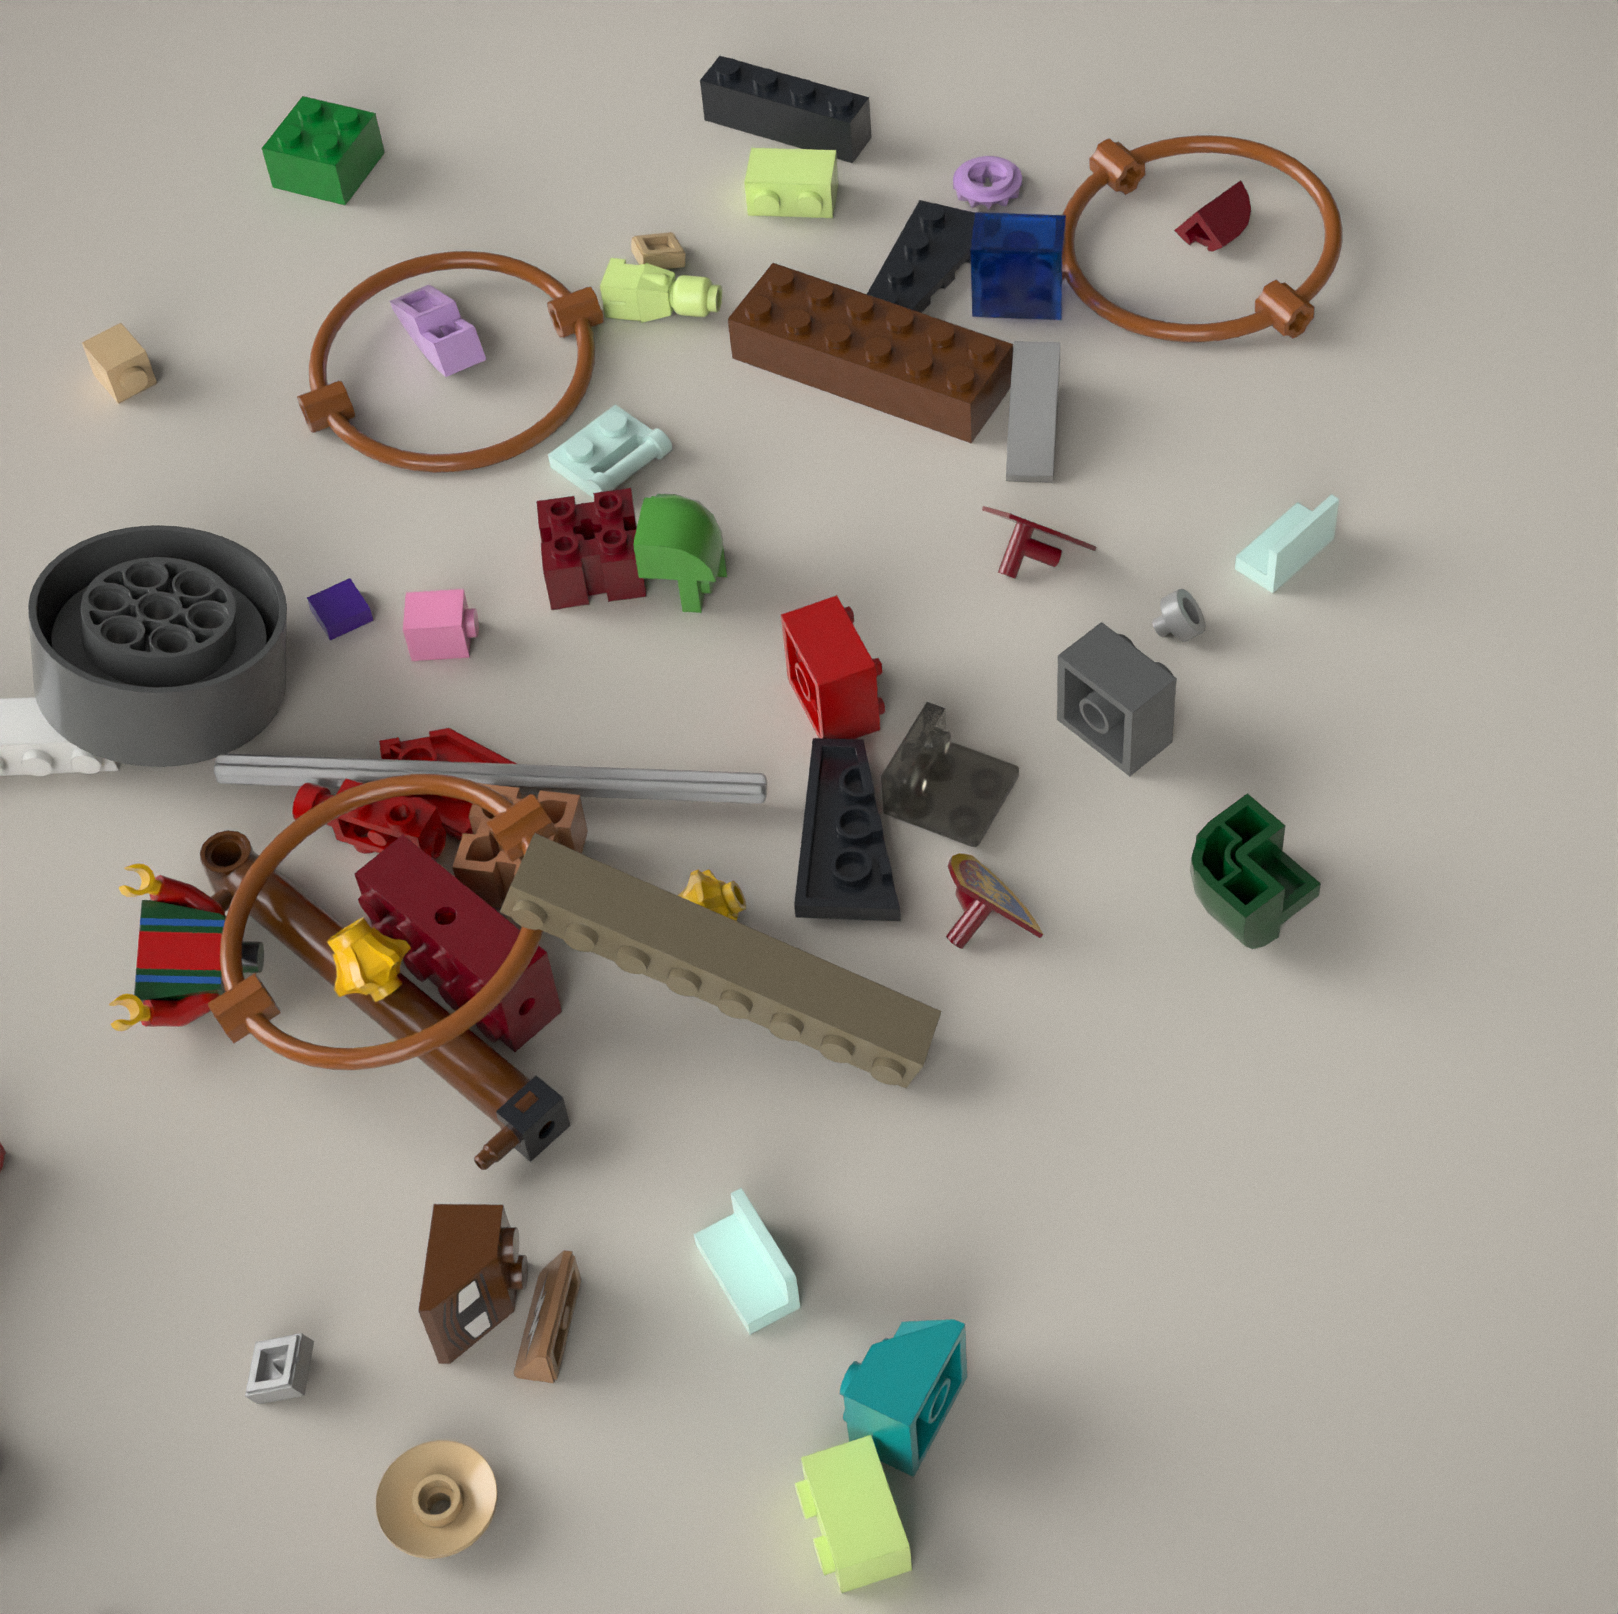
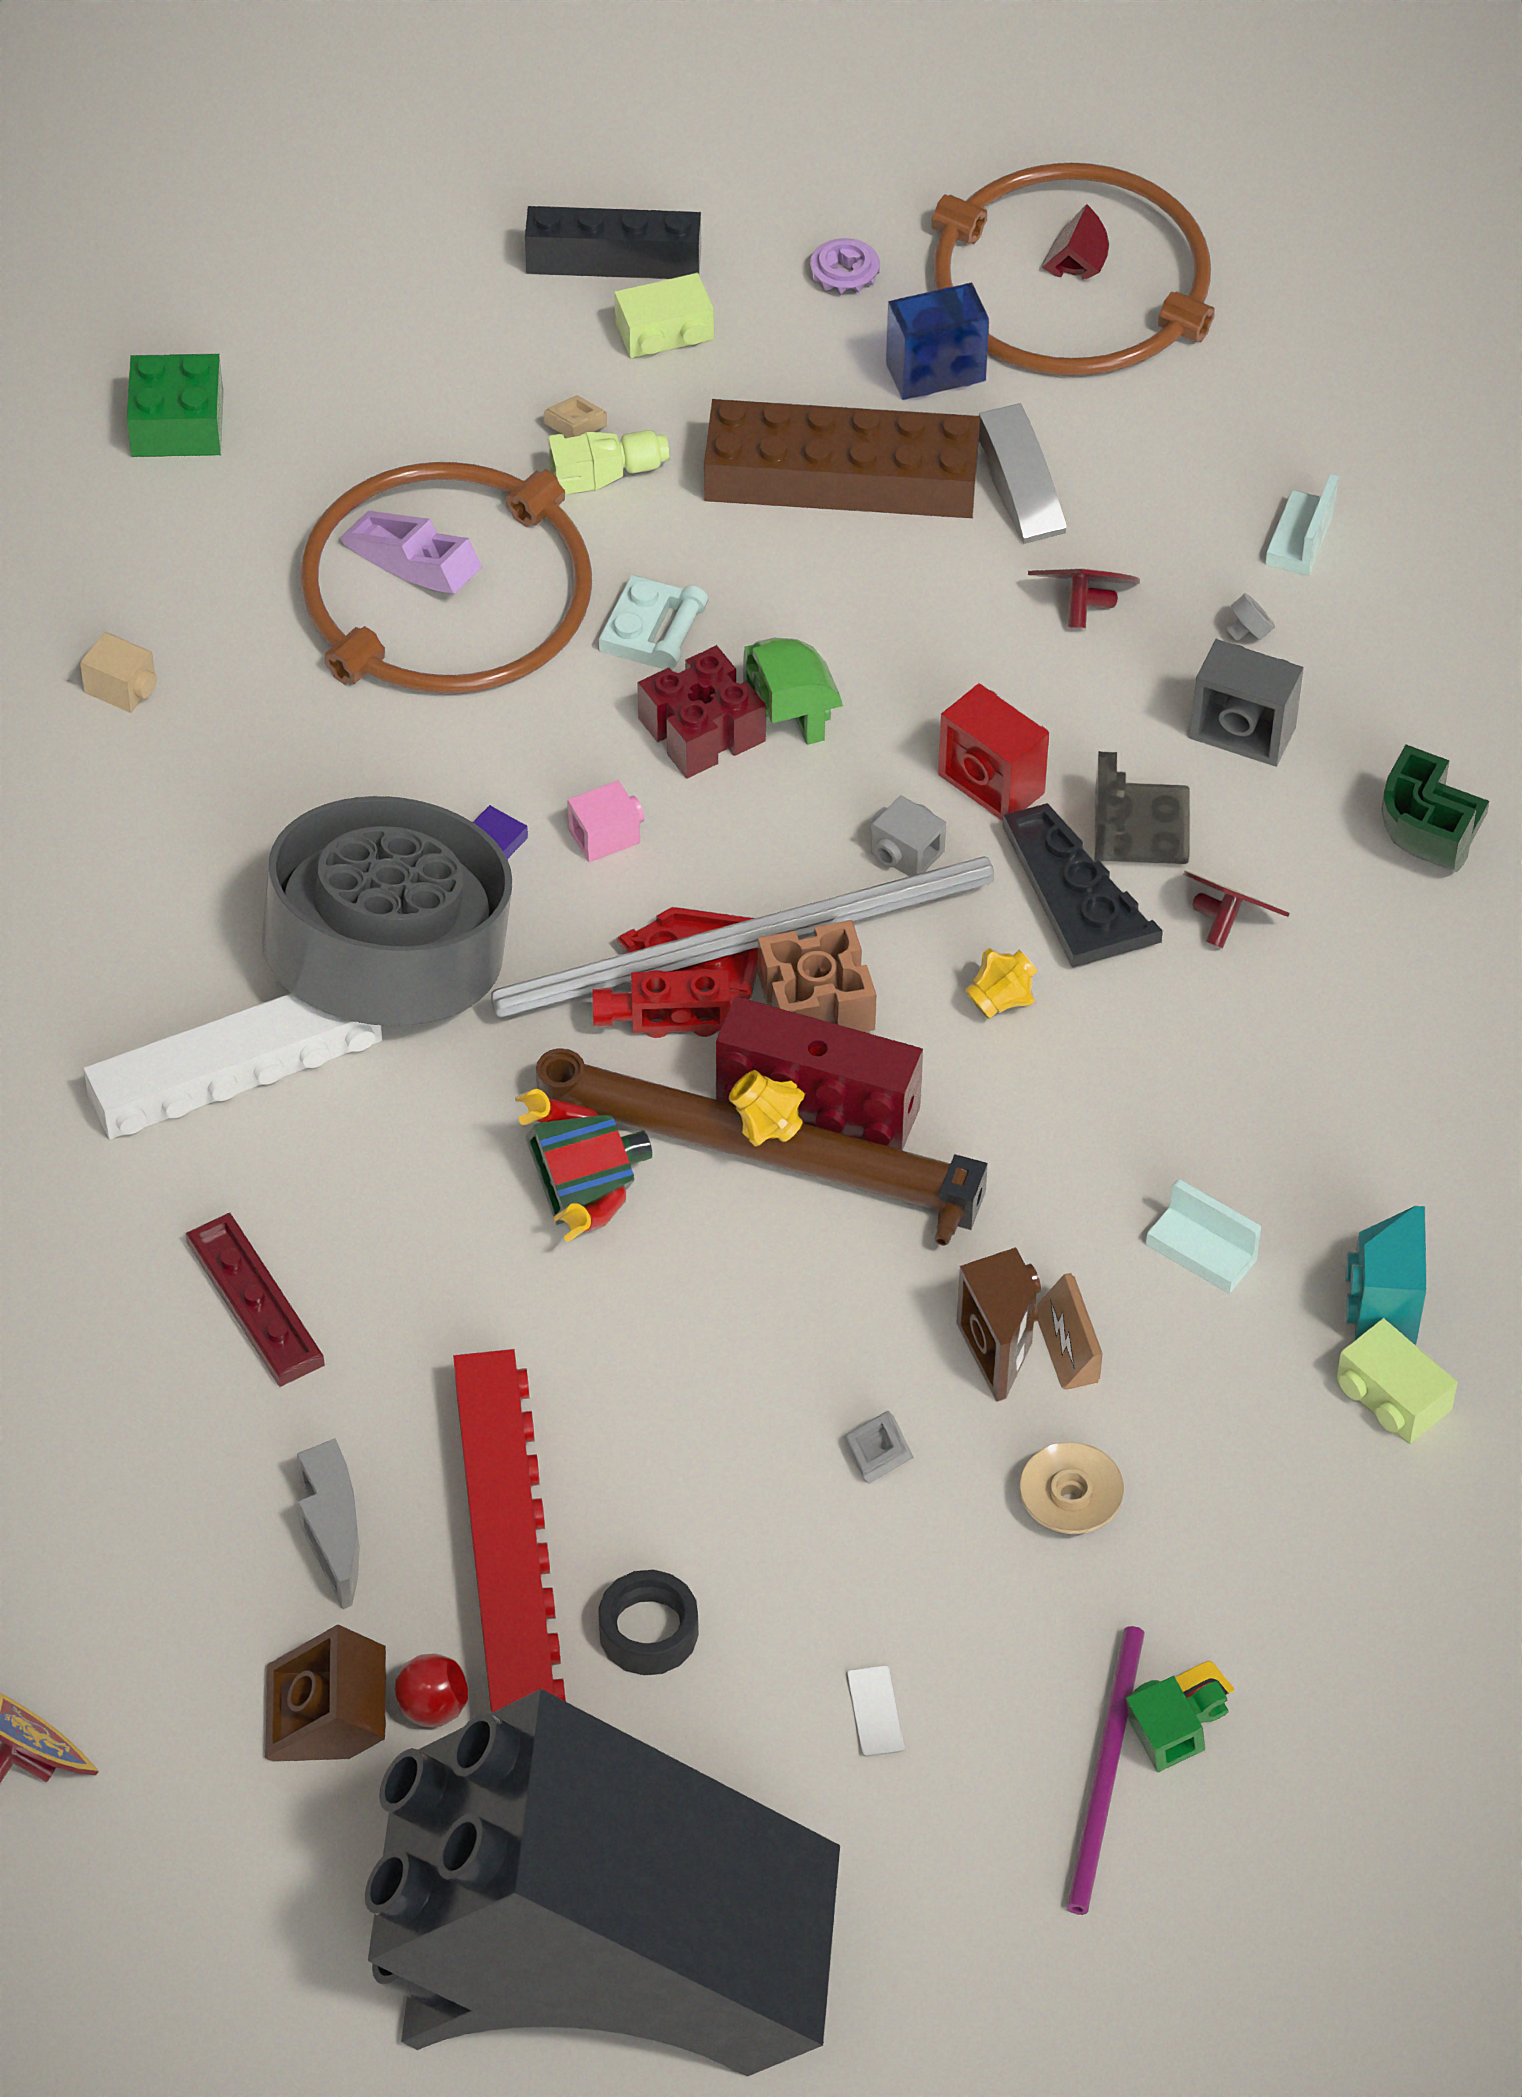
camera: 30 degrees left, 0 degrees up
(249, 1006) = (687, 1173): dark orange piece -> none
(708, 730) = (907, 836): none -> light grey brick
(721, 962) = (1067, 1009): dark tan brick -> none
(925, 255) = (833, 348): black wing -> none

